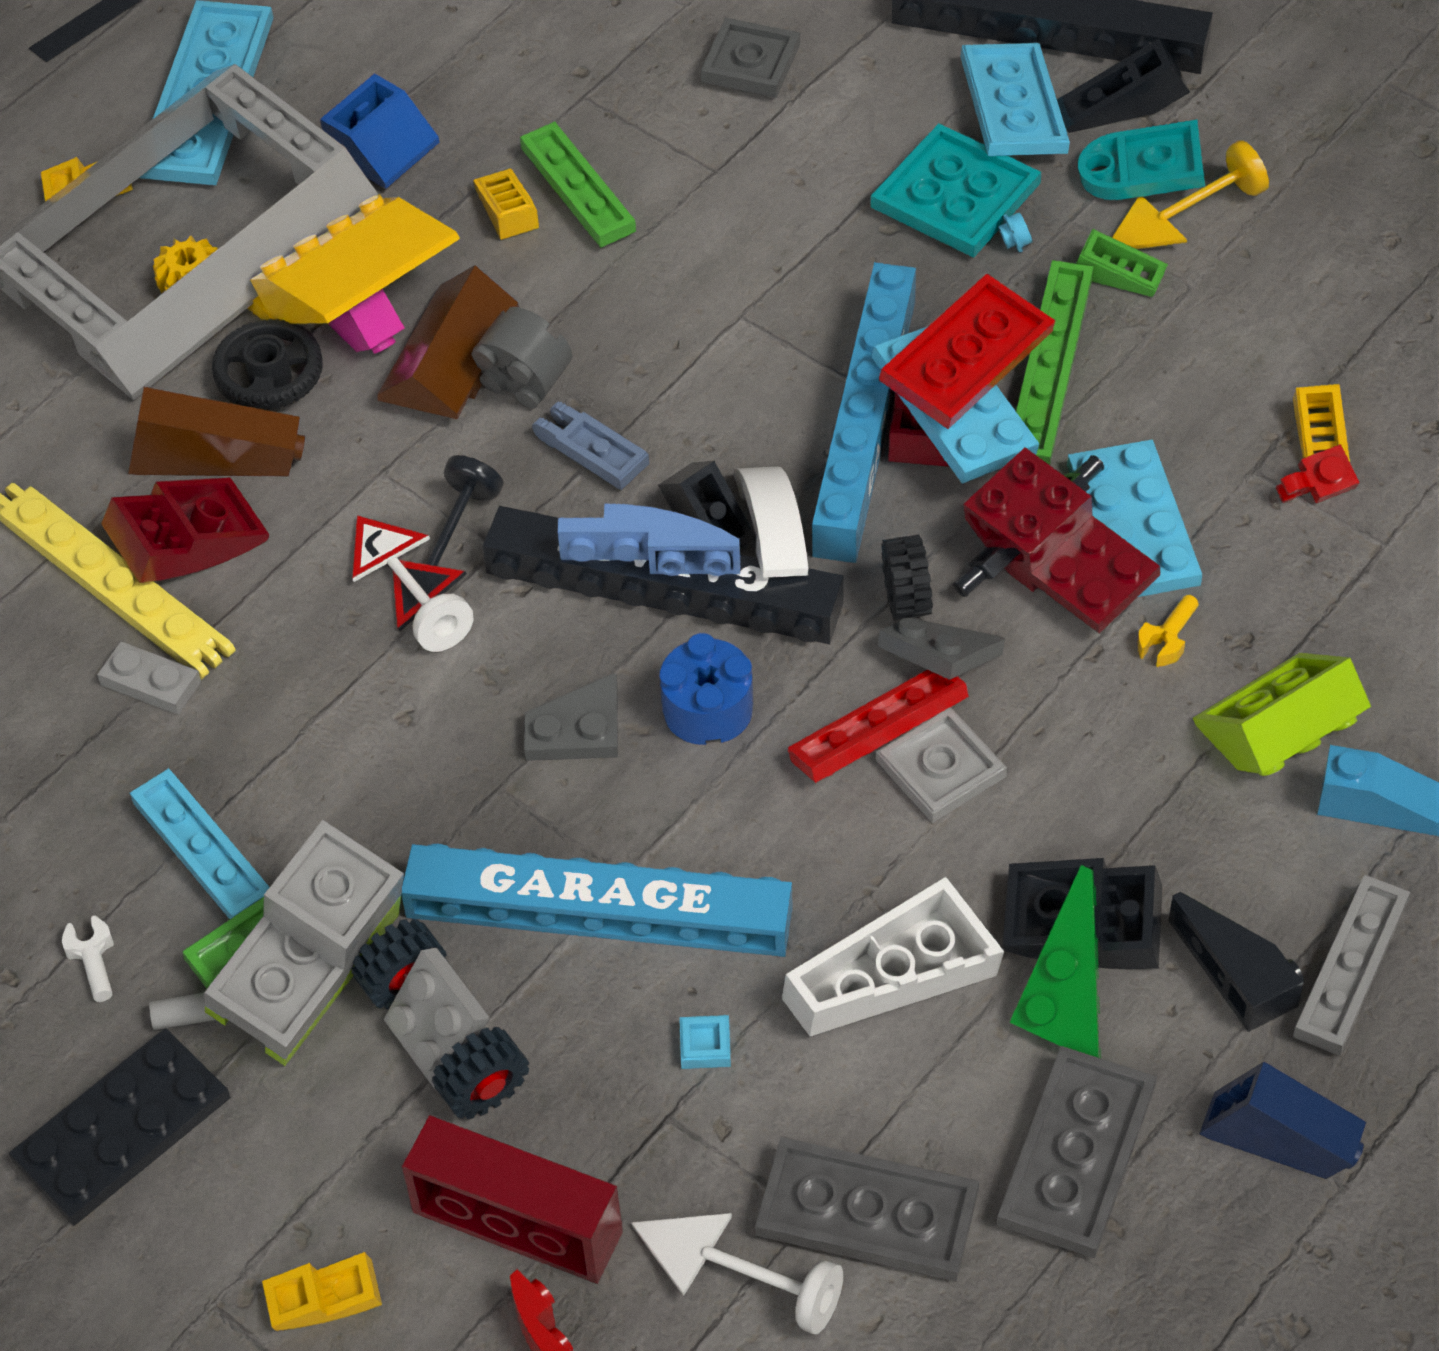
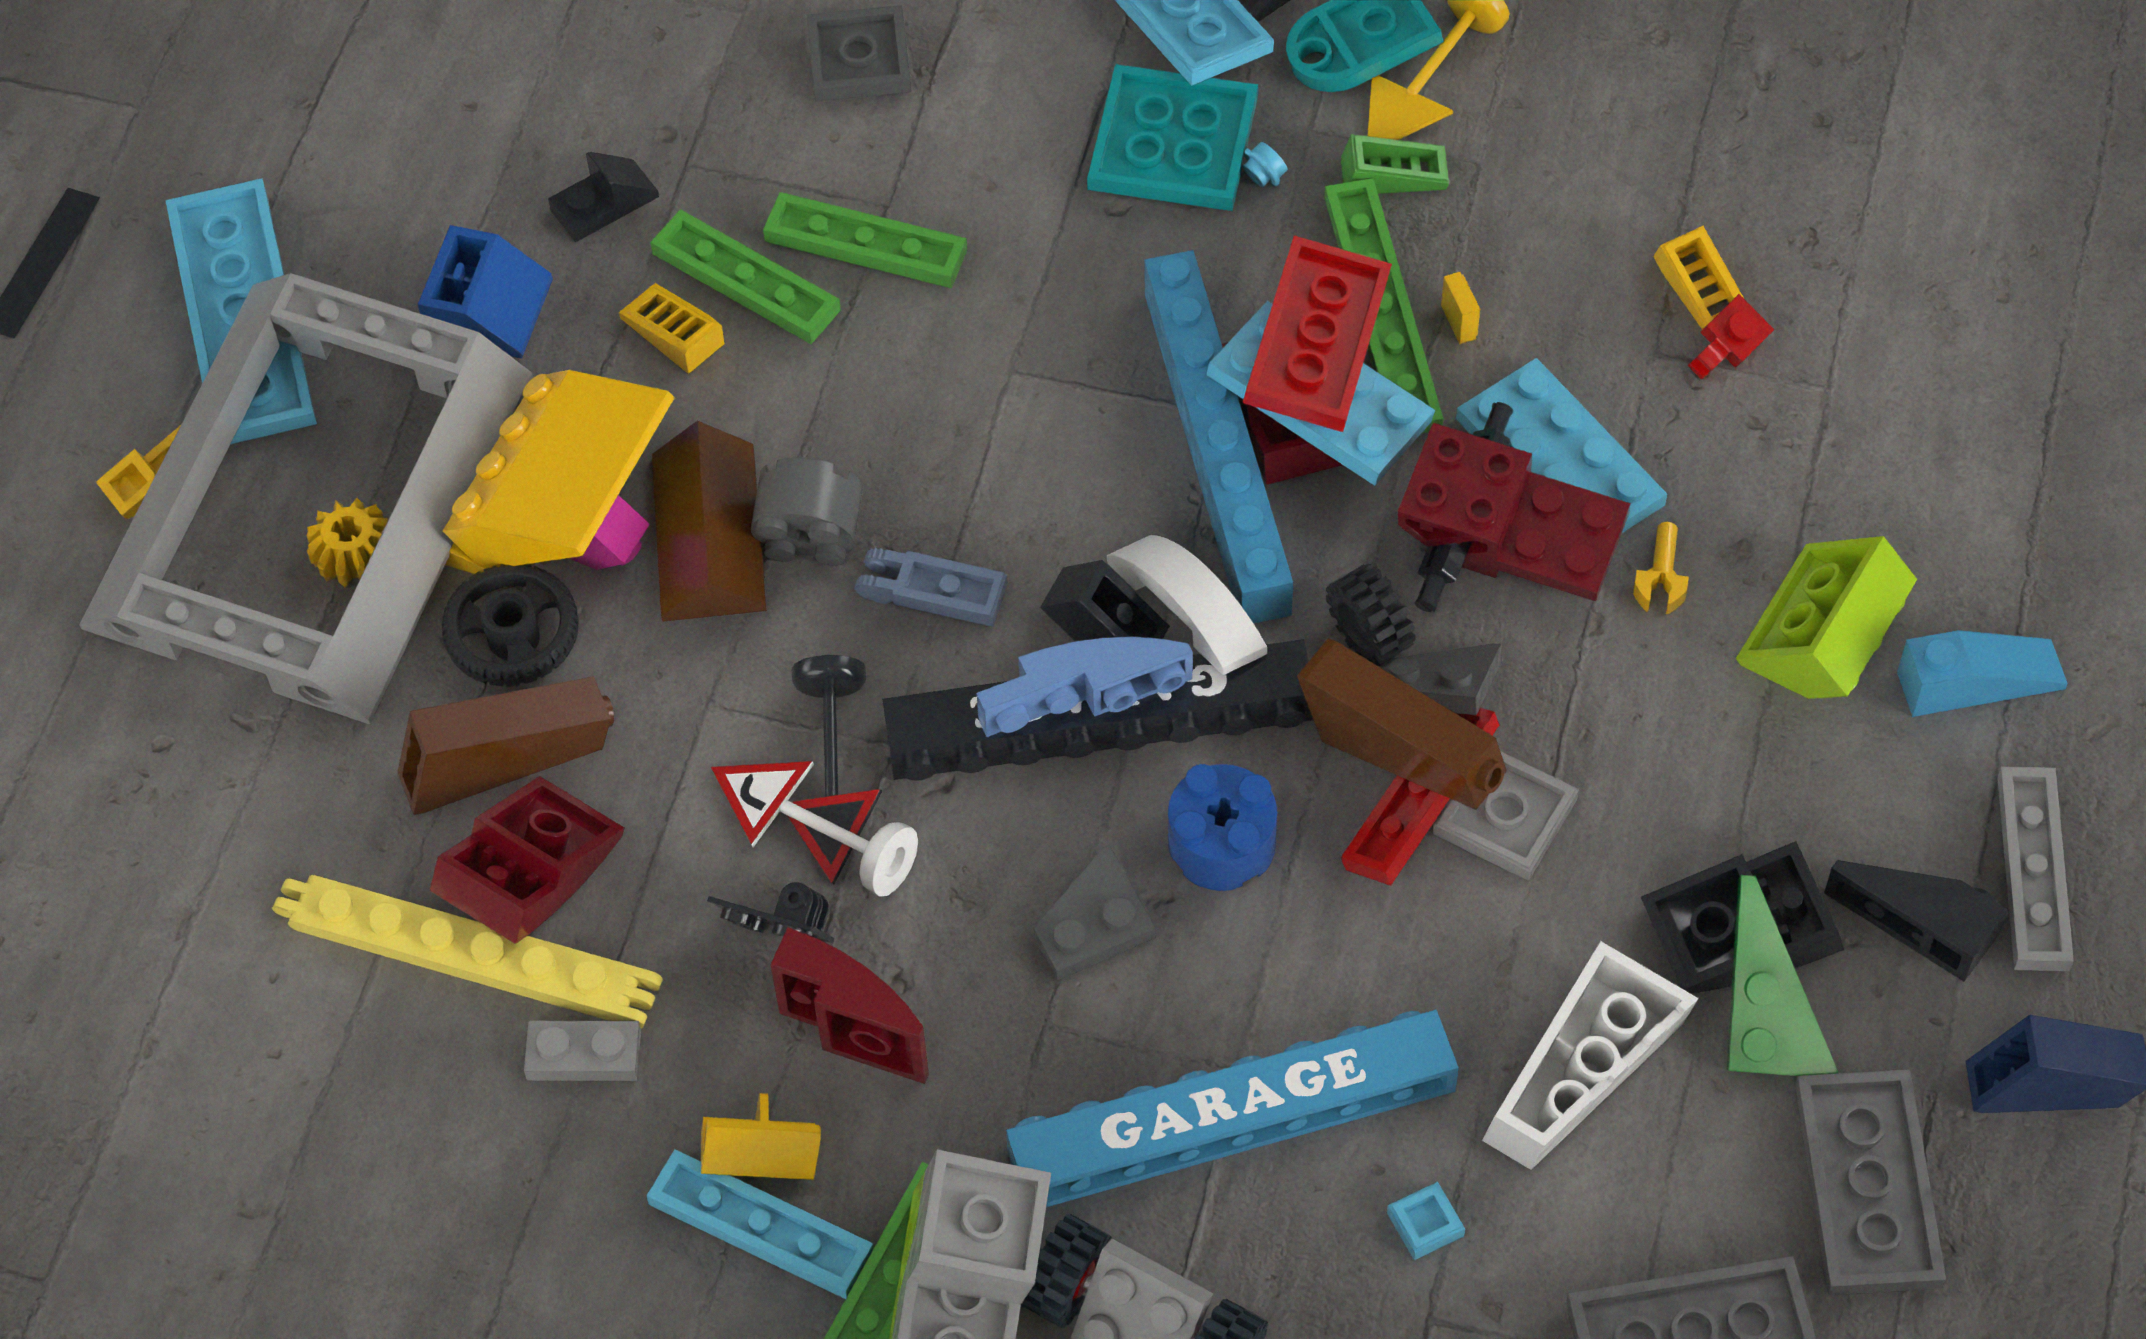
camera: 25 degrees left, 5 degrees up
(228, 787) = (759, 1146): none -> yellow panel
(342, 630) = (796, 908): none -> black hinge
(343, 710) = (849, 1005): none -> dark red slope
(516, 96) = (609, 193): none -> black slope
(681, 187) = (865, 239): none -> bright green plate
(876, 661) = (1398, 727): none -> reddish brown slope
(1111, 382) = (1460, 307): none -> yellow tile

